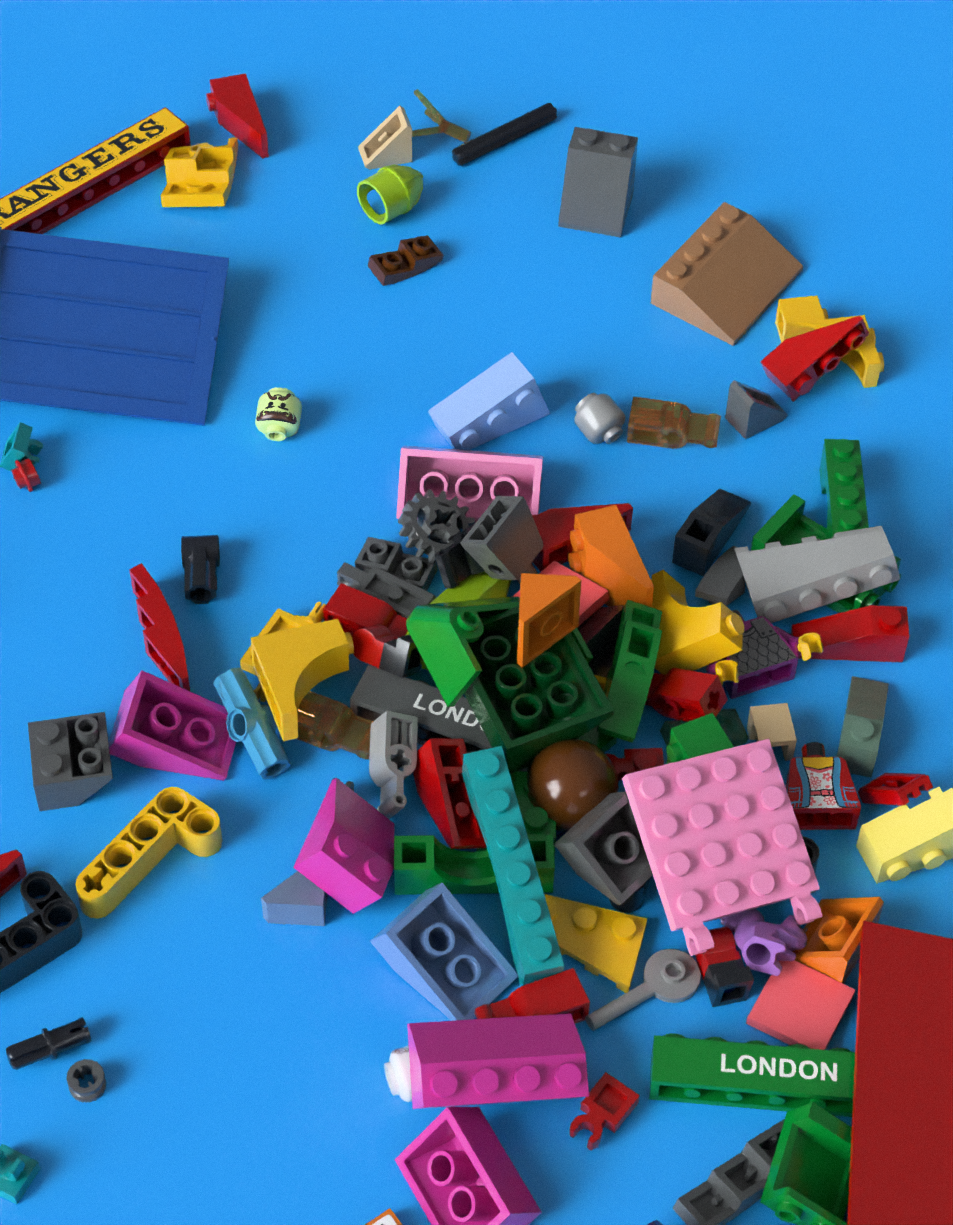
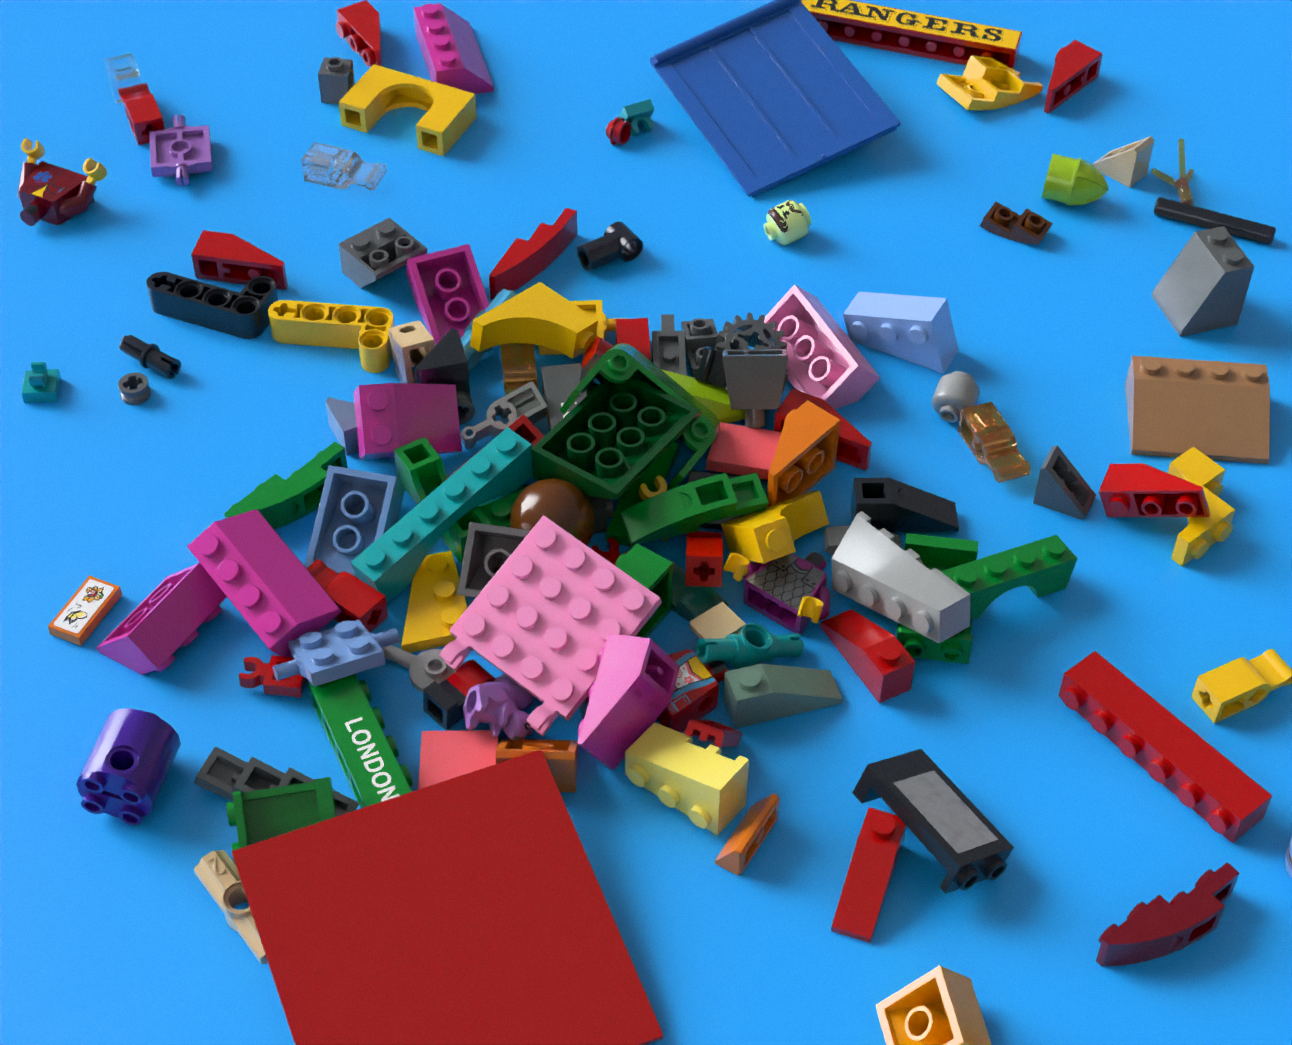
camera: 60 degrees right, 5 degrees down
(248, 798) = (409, 347): none -> tan torso
(304, 774) = (445, 364): none -> black slope
(365, 996) = (297, 496): none -> green slope
(546, 612) = (651, 397): orange slope -> none
(628, 1040) = (336, 653): none -> medium blue plate
(810, 715) = (749, 647): none -> teal pin
(839, 821) = (627, 696): none -> dark pink slope

